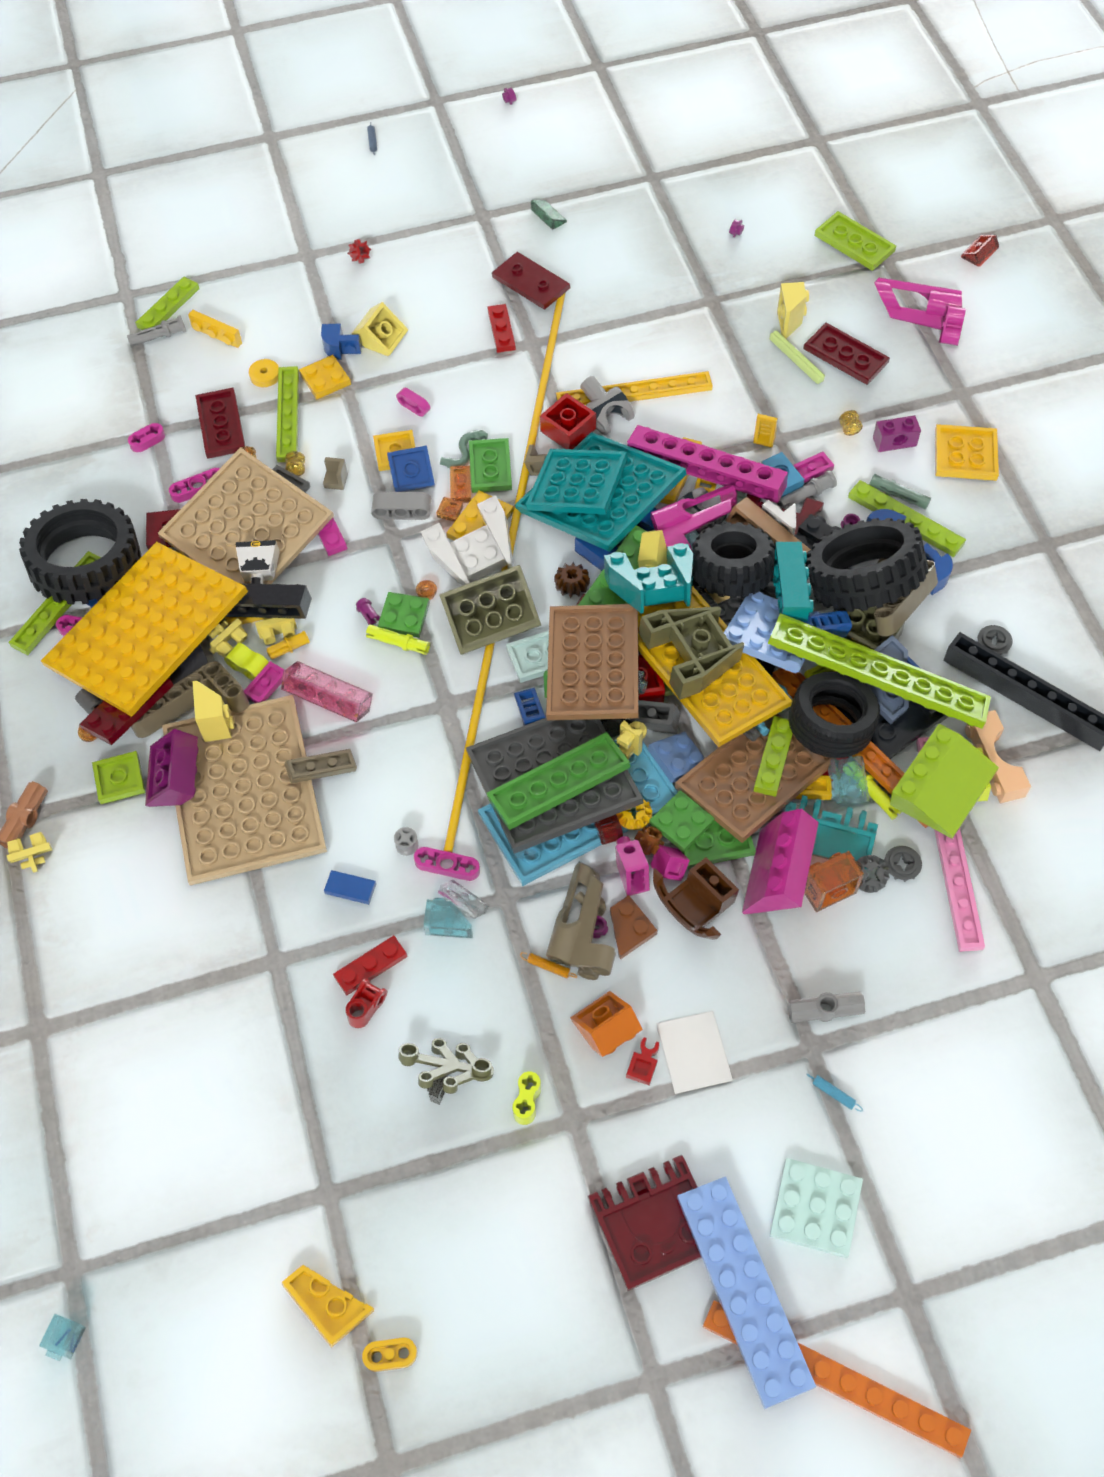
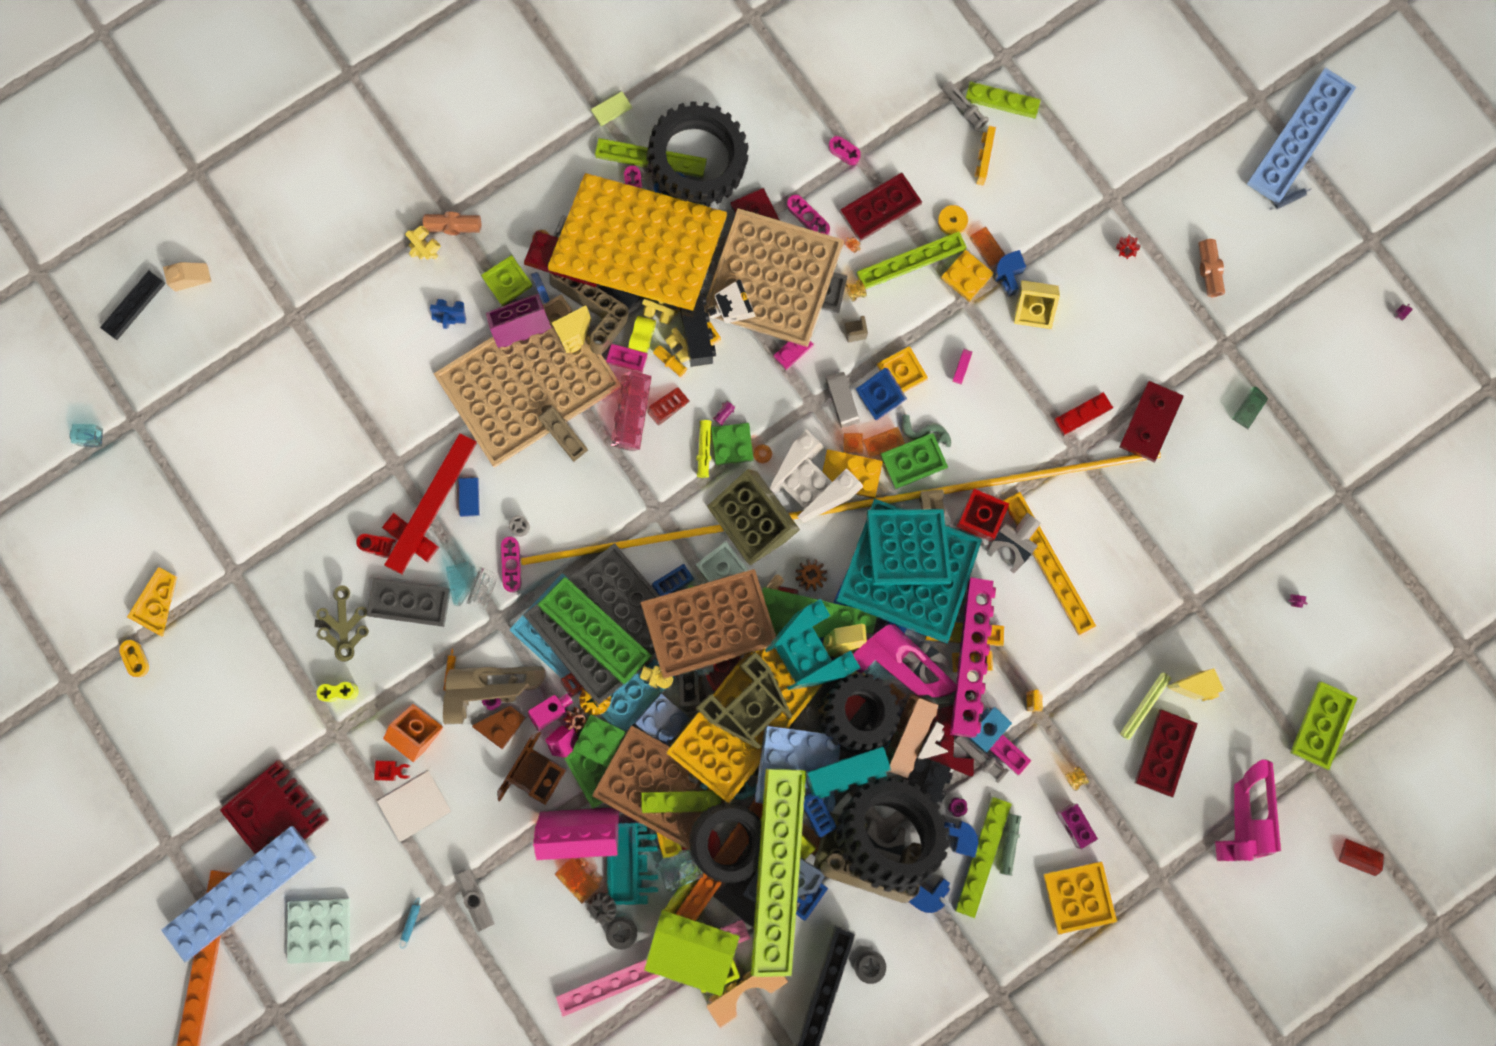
camera: 70 degrees right, 20 degrees up
(125, 848) = (448, 315): none -> blue hips
(142, 743) = (540, 287): none -> blue tile
(304, 354) = (987, 246): none -> clear orange plate
(320, 116) = (1301, 135): none -> light blue plate
(336, 662) = (654, 414): none -> clear red slope
(342, 927) = (430, 504): none -> red tile
(408, 202) = (1211, 268): none -> nougat piece
(447, 986) = (408, 602): none -> dark grey plate

